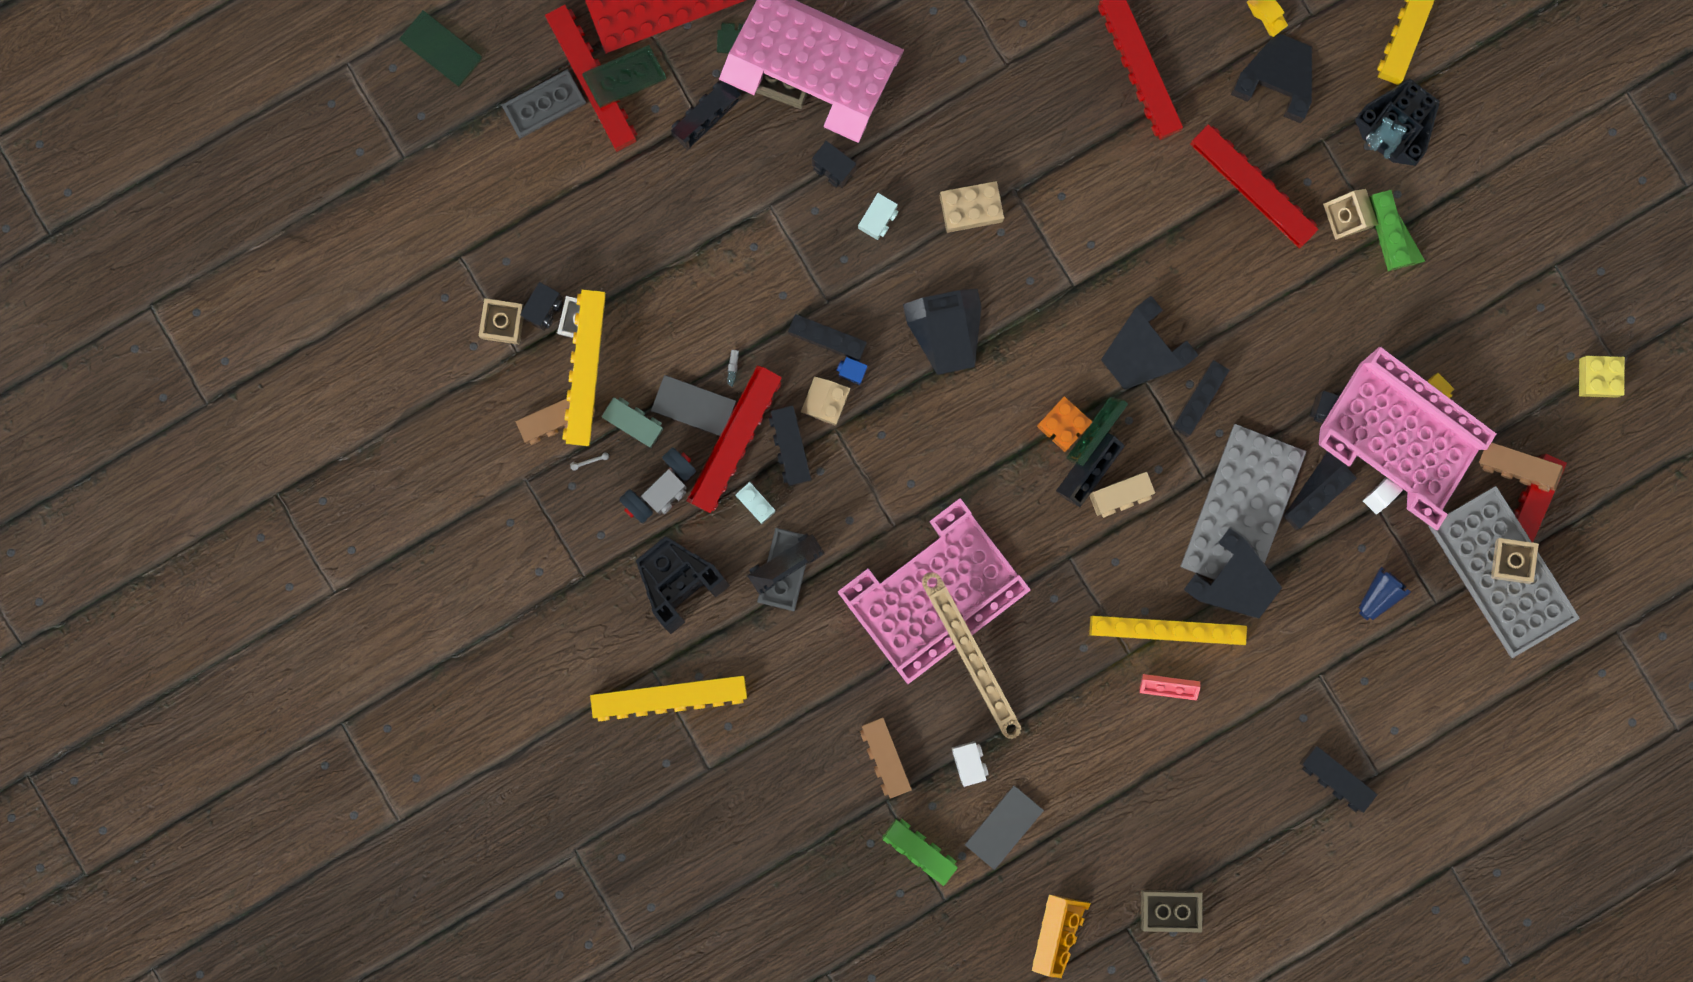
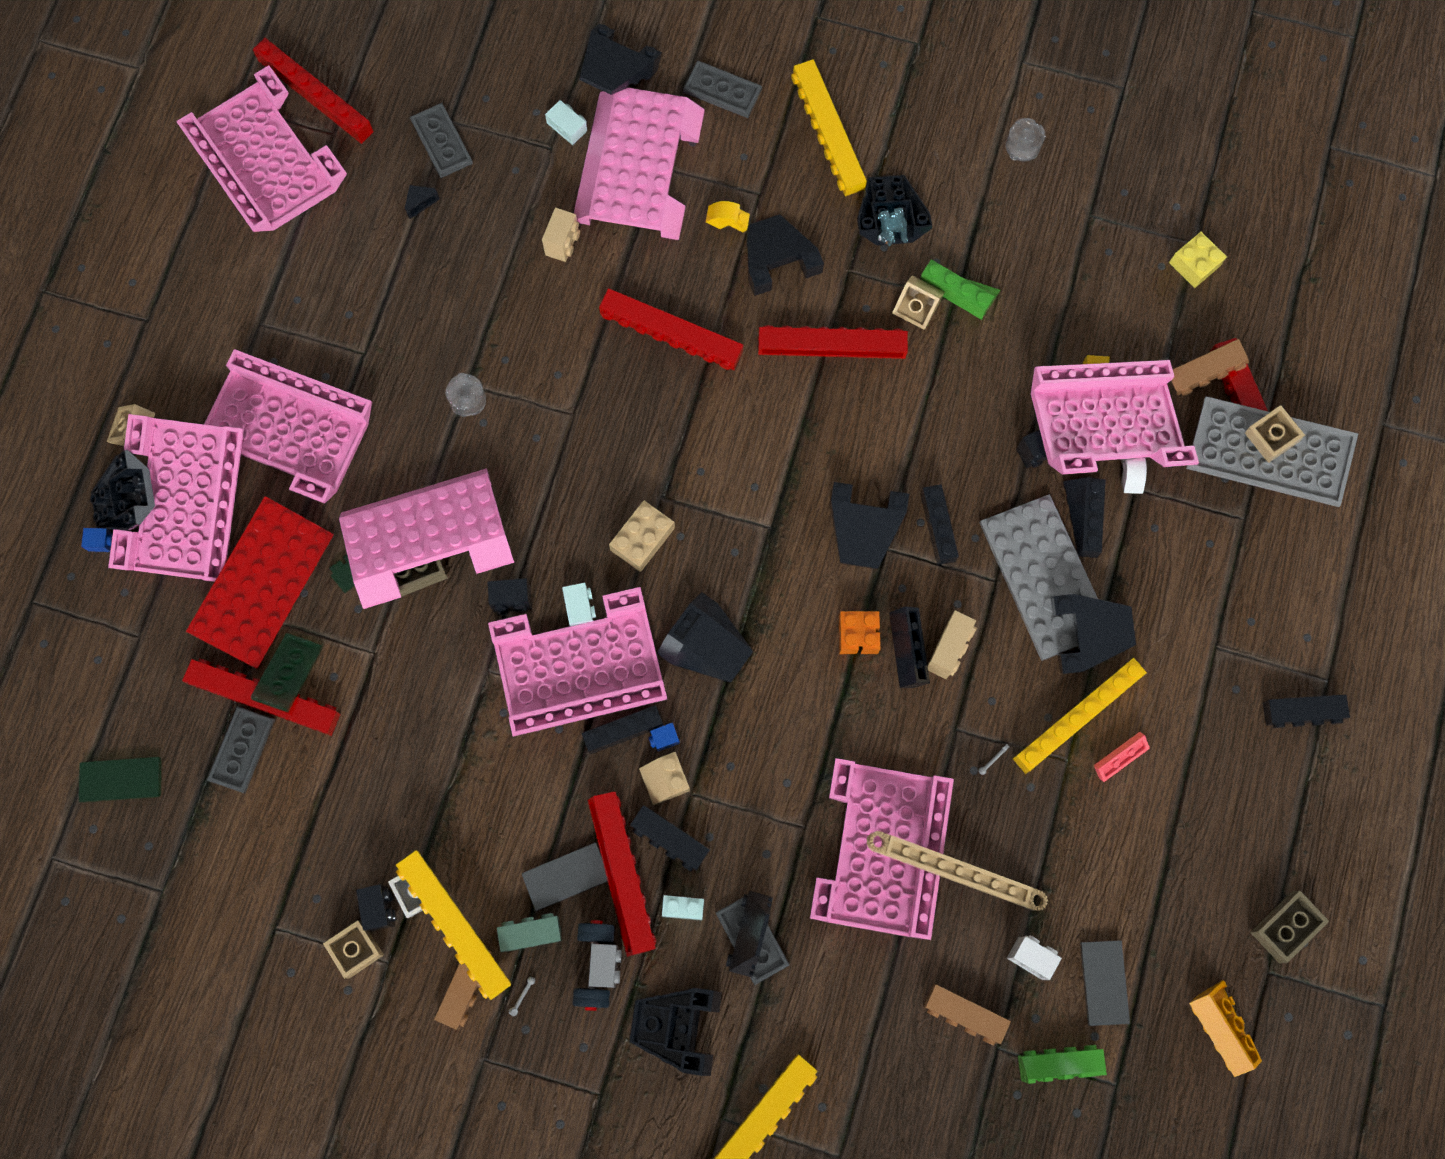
camera: 40 degrees left, 10 degrees down
(705, 114) = (377, 645): black wedge -> none
(732, 367) = (569, 818): light grey piece -> none
(836, 263) = (578, 668): none -> bright pink slope
(1060, 604) = (982, 770): none -> light grey hinge
(1096, 431) = (889, 615): clear green tile -> none
(1382, 595) = (1204, 546): dark blue cone -> none
(1570, 164) = (1025, 140): none -> clear brick

